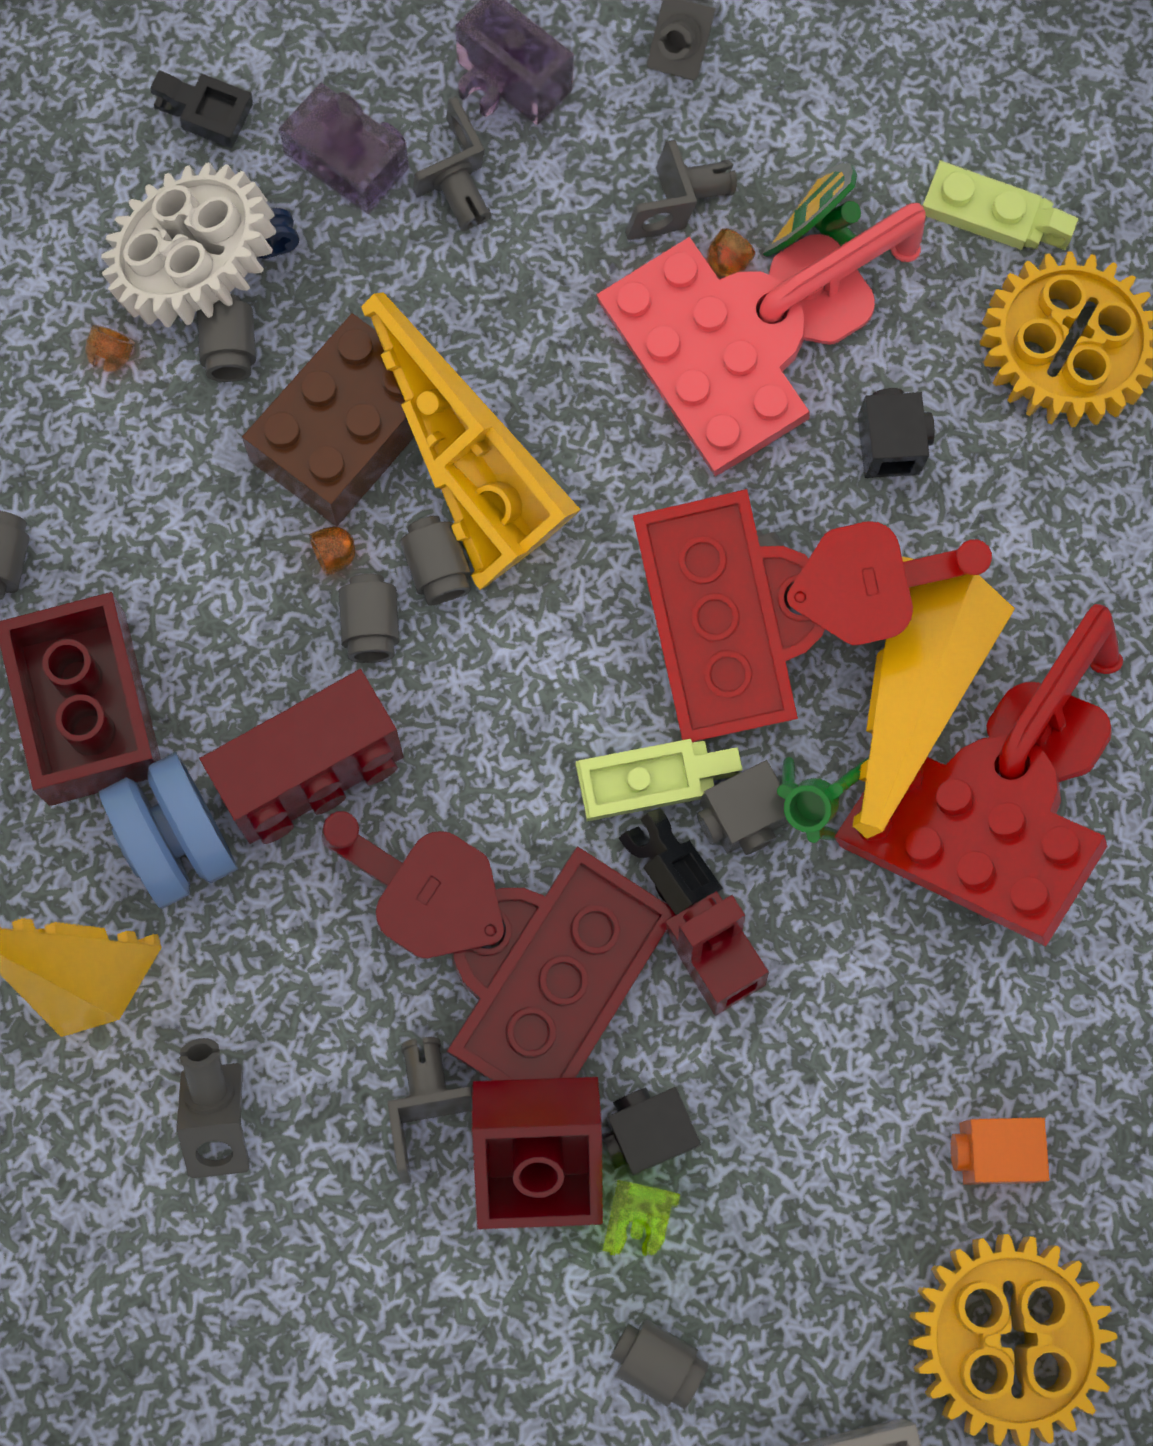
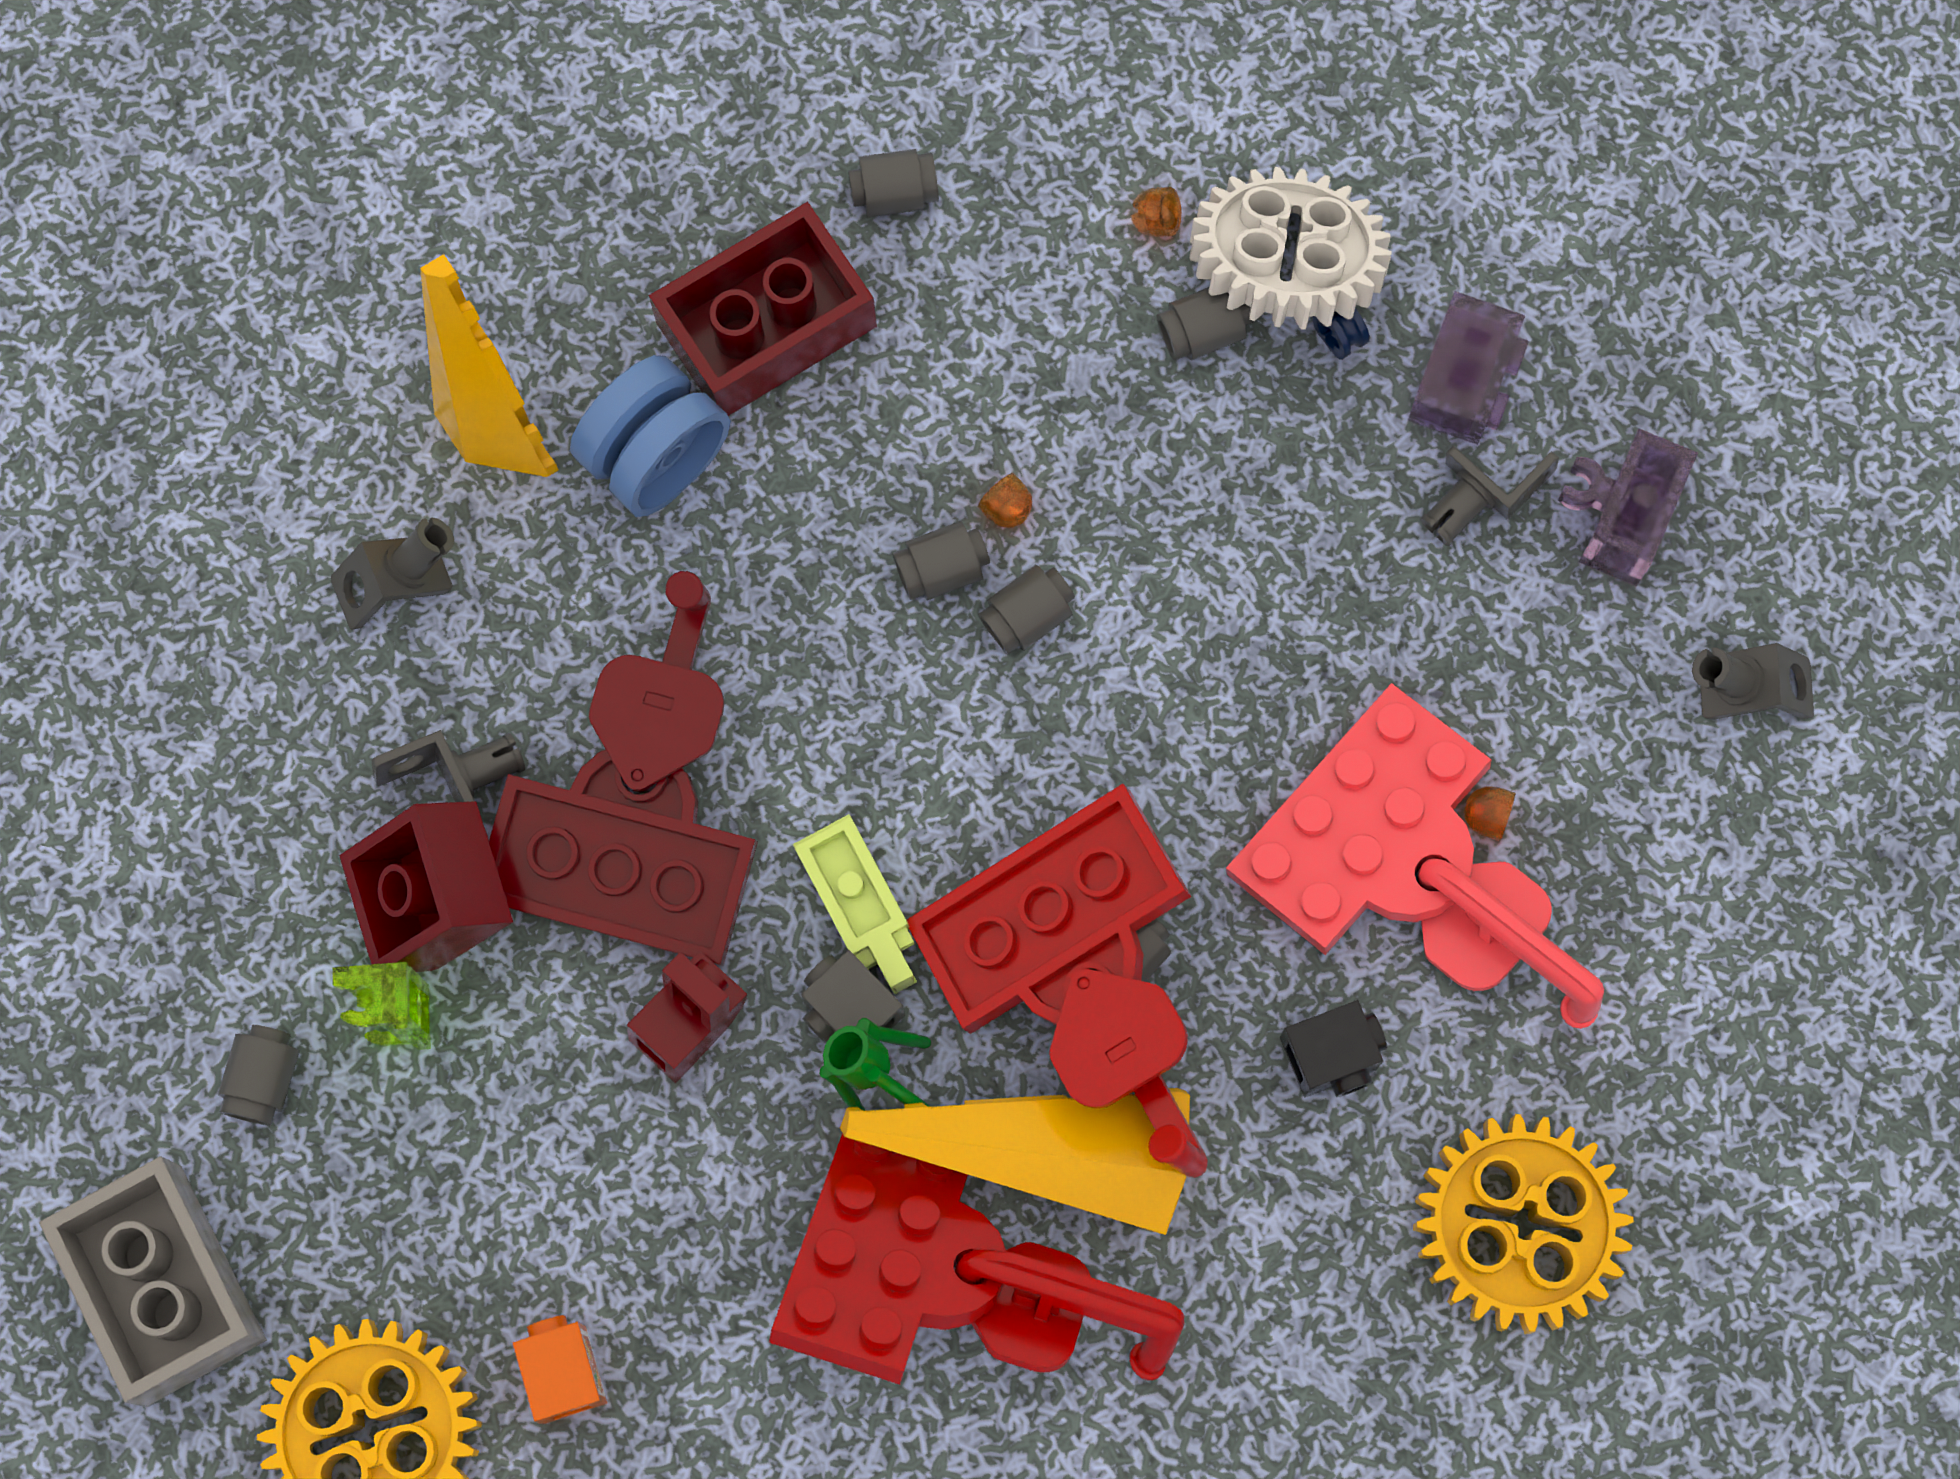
camera: 80 degrees right, 0 degrees up
(207, 109) = (1465, 218): black plate -> none
(305, 758) = (761, 541): dark red brick -> none
(333, 424) = (1149, 466): reddish brown brick -> none
(491, 483) = (1123, 635): yellow wedge -> none
(648, 1130) = (484, 999): black brick -> none
(674, 867) = (764, 952): black plate -> none
(682, 190) = (1557, 740): dark grey bracket -> none
(819, 210) = (1573, 892): shield -> none
(996, 209) = (1661, 1096): yellowish green hinge -> none

